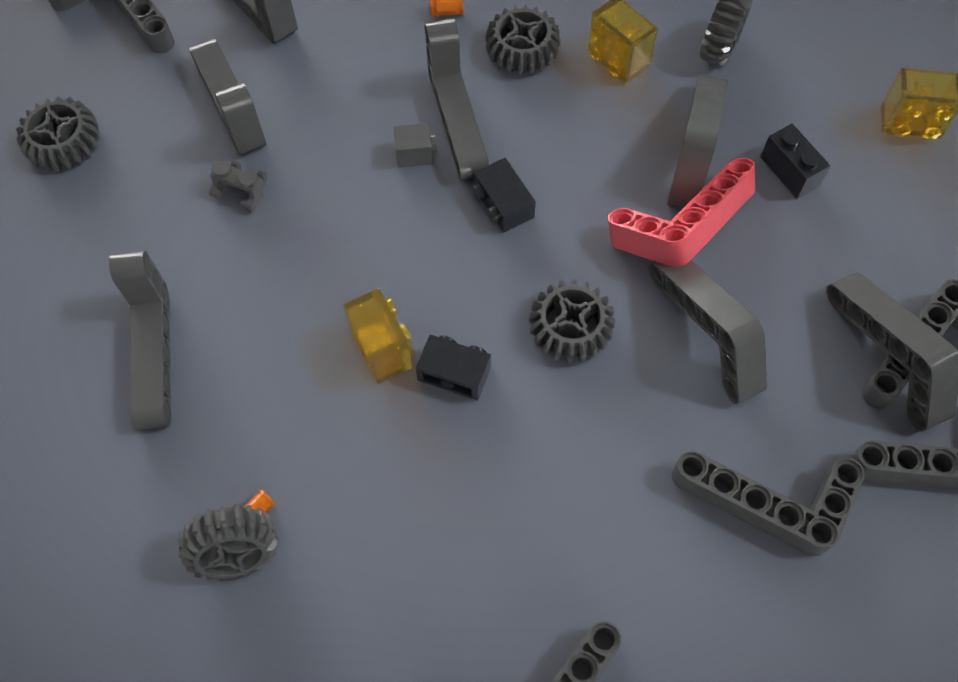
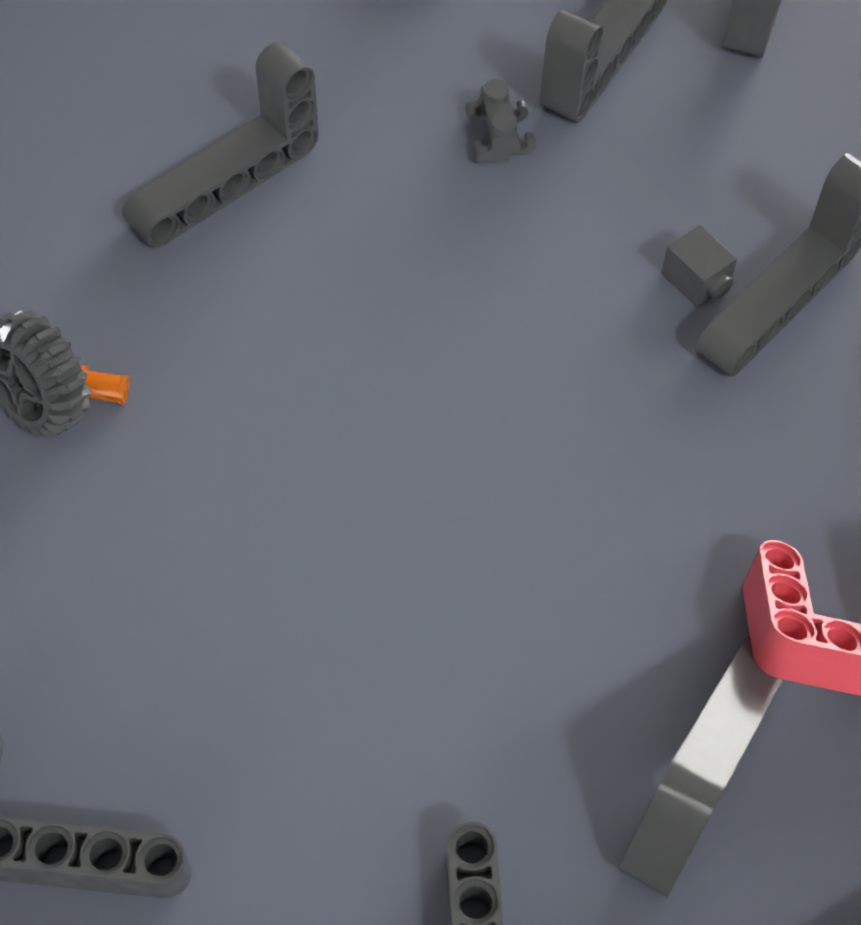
camera: 55 degrees right, 5 degrees down
(379, 335) = (396, 375): clear yellow brick -> none
(454, 366) = (423, 486): black brick -> none
(503, 195) = (708, 406): black brick -> none
(575, 304) = (556, 565): dark grey gear -> none

